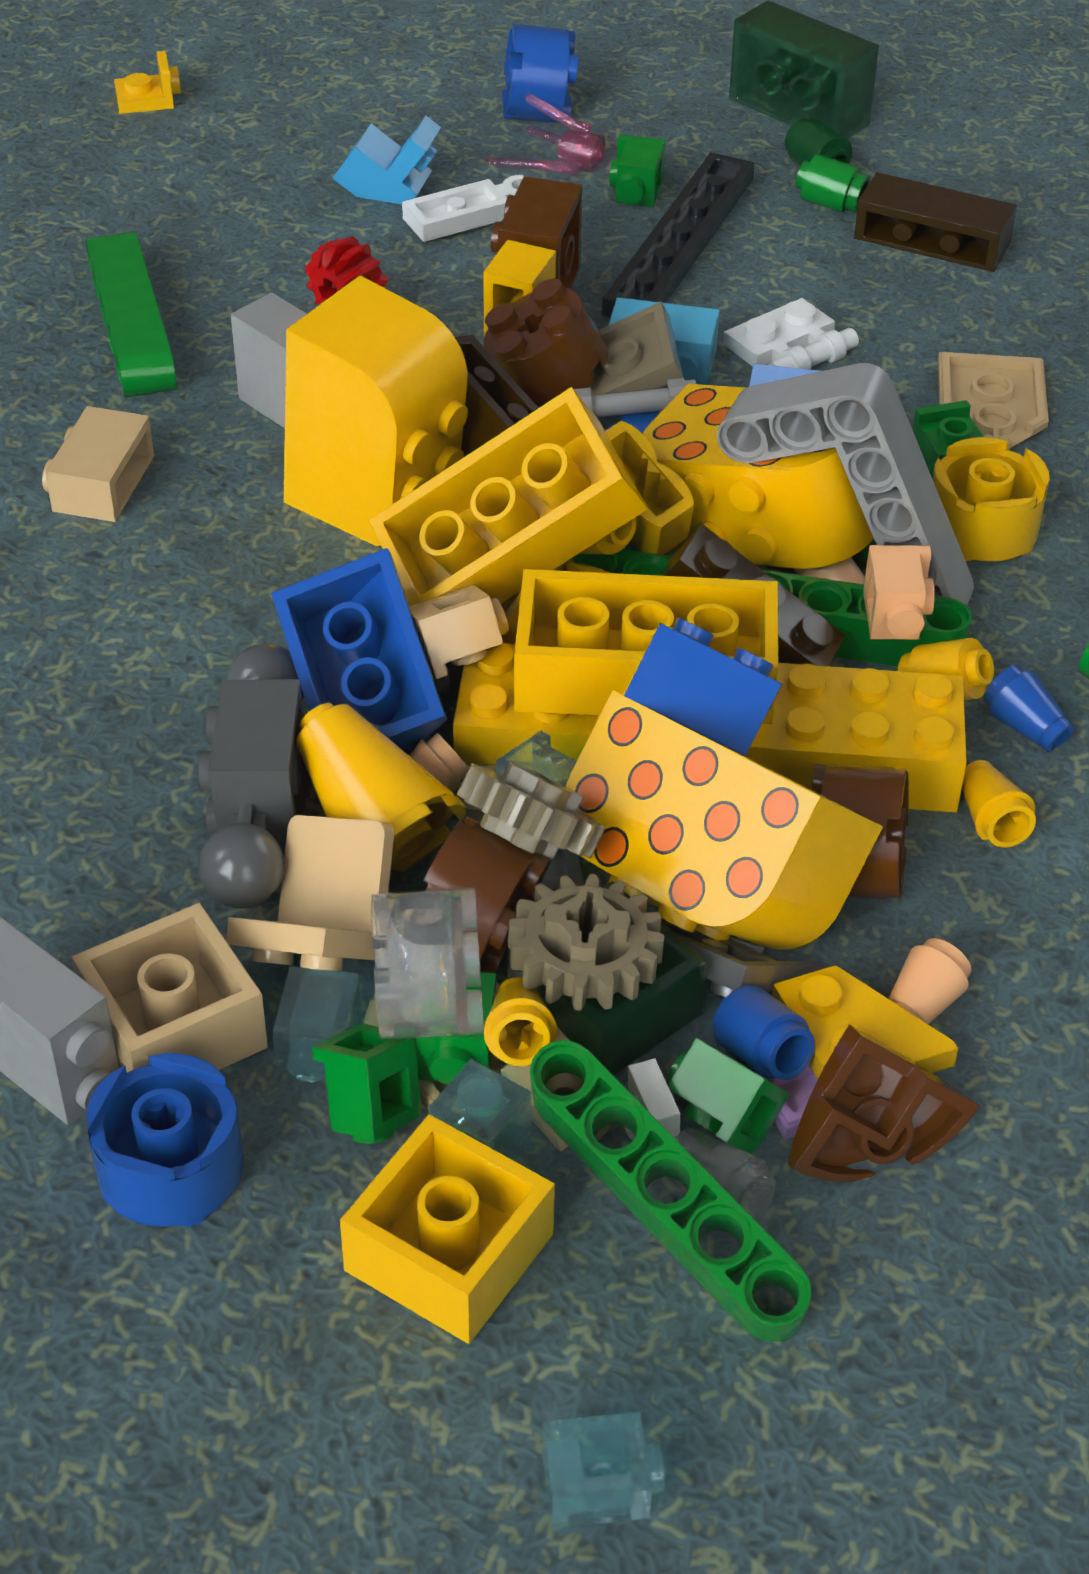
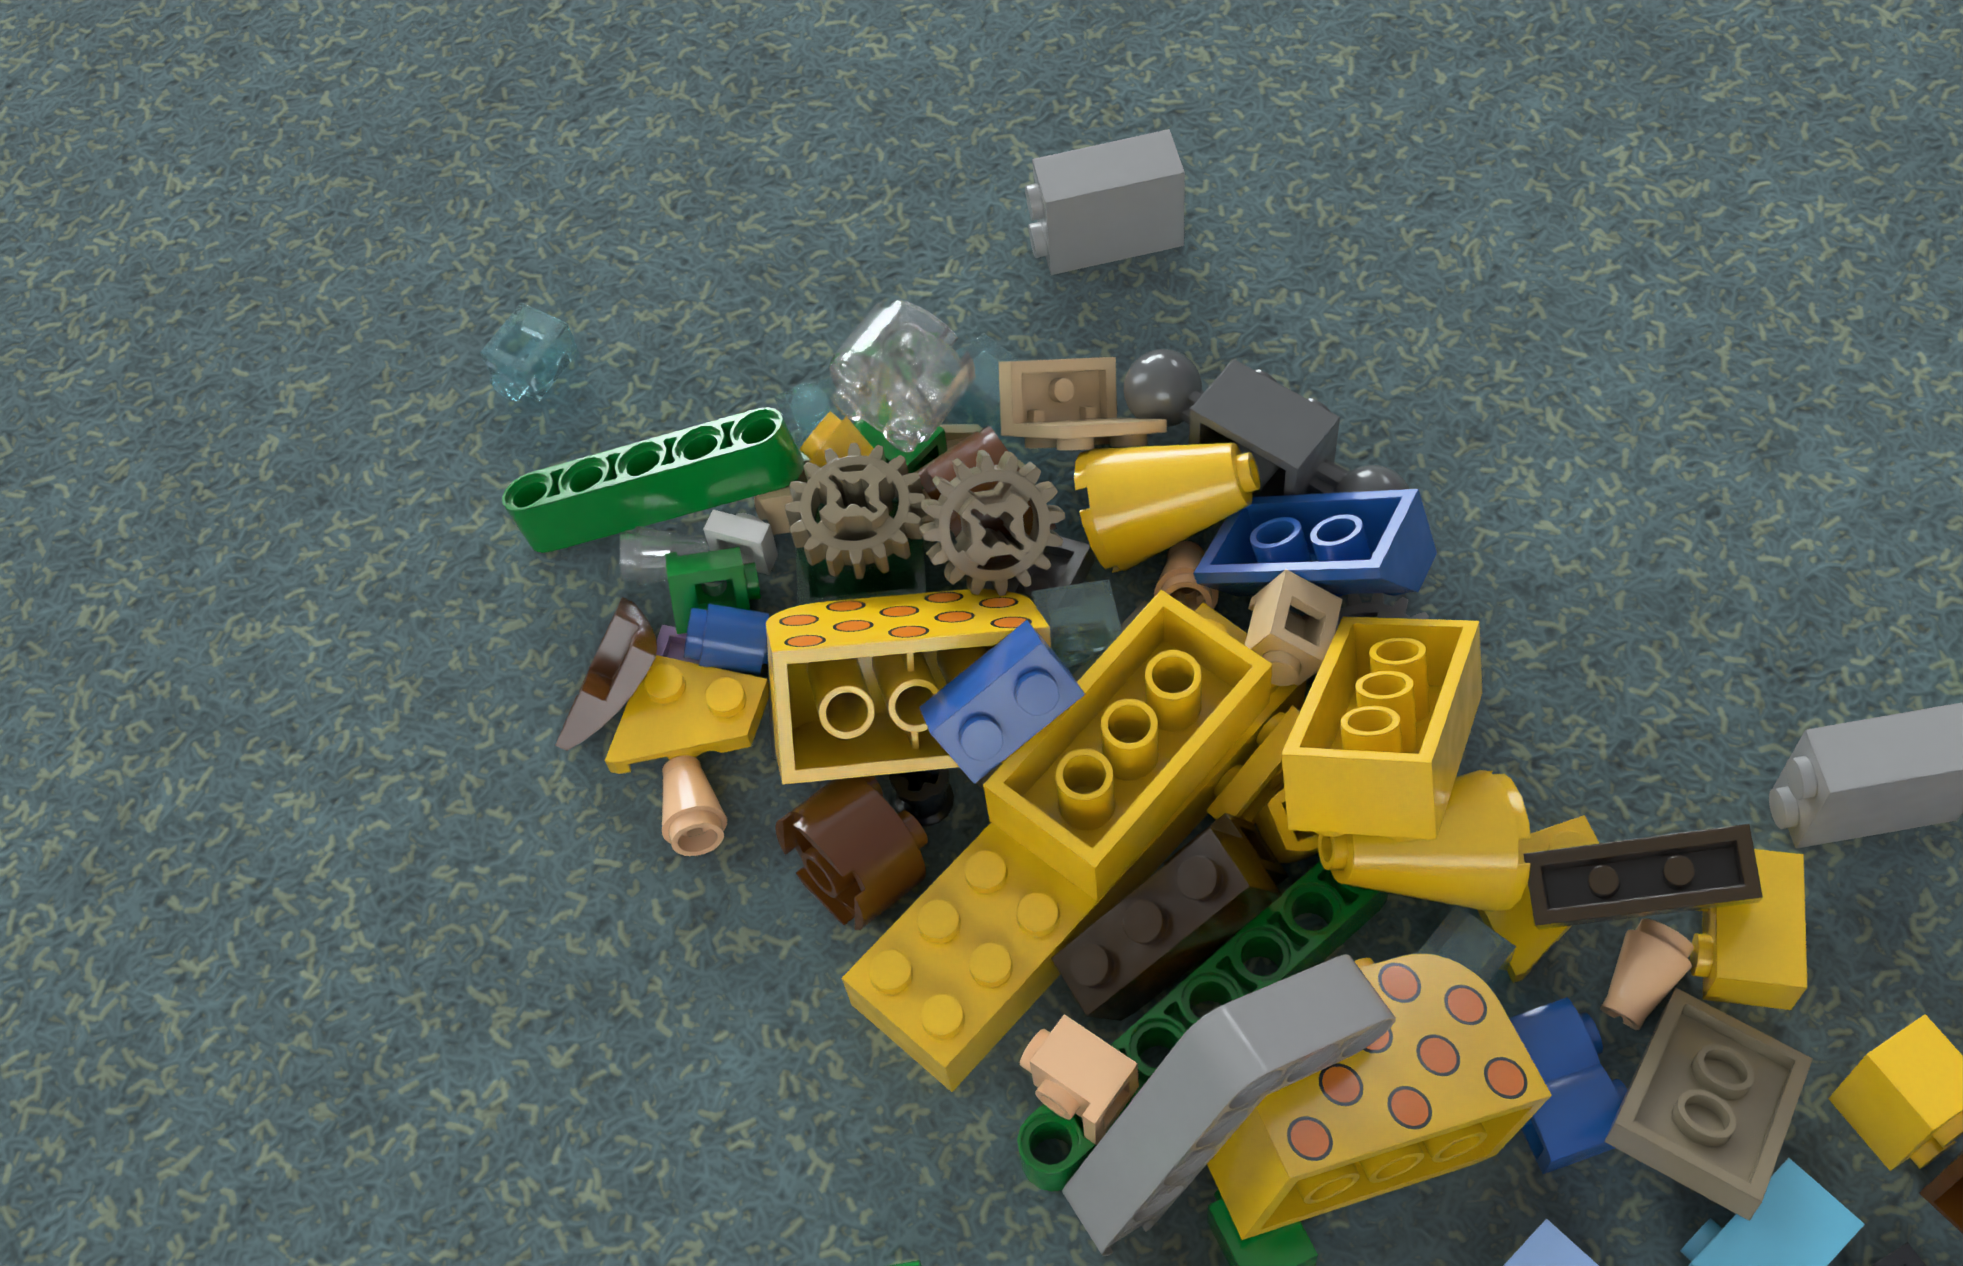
camera: 135 degrees right, 15 degrees up
(99, 463) = (1843, 554): tan brick -> none
(165, 1140) = (950, 245): blue brick -> none
(176, 992) = (1068, 293): tan brick -> none
(369, 405) = (1681, 722): yellow brick -> none
(448, 1227) = (743, 348): yellow brick -> none
(546, 341) = (1767, 1036): reddish brown brick -> none
(632, 401) = (1581, 1118): light grey bar -> none
(662, 489) = (1406, 914): yellow brick -> none
(953, 657) = (987, 1100): yellow brick -> none
(997, 805) = (820, 1023): yellow cone -> none
(1027, 707) = (903, 1156): blue cone -> none

